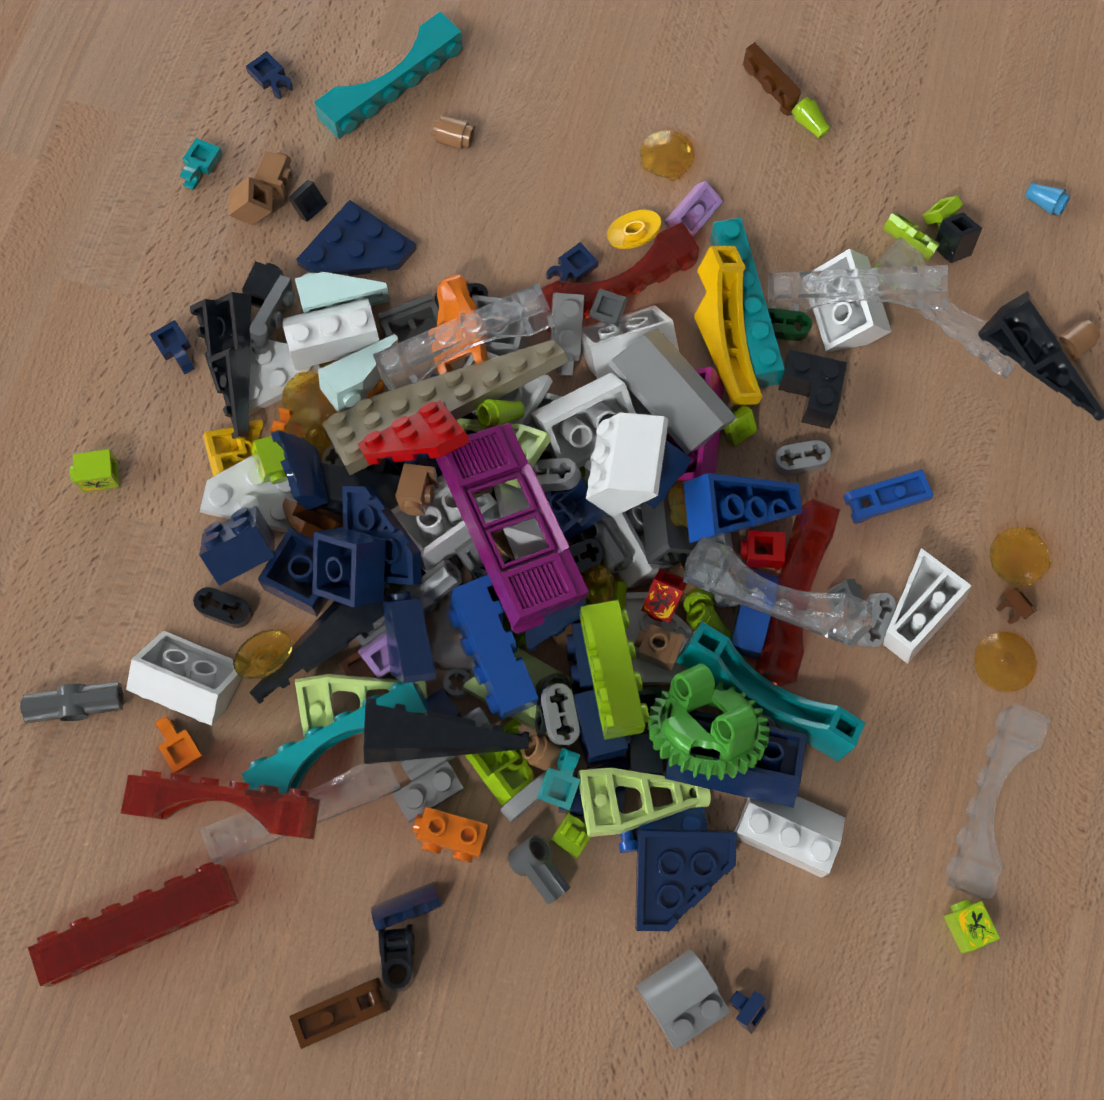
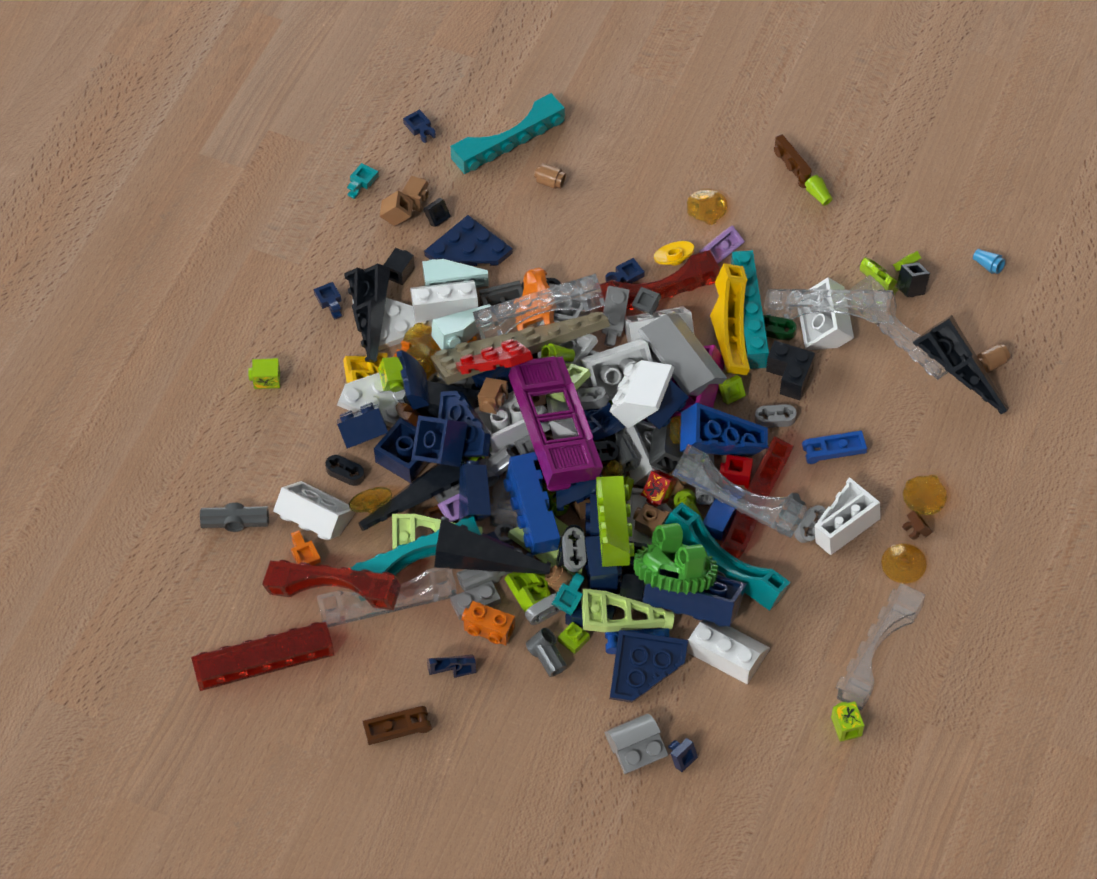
camera: 10 degrees right, 15 degrees down
(271, 314) = (402, 283): dark grey plate -> none
(397, 954) = (441, 693): black piece -> none

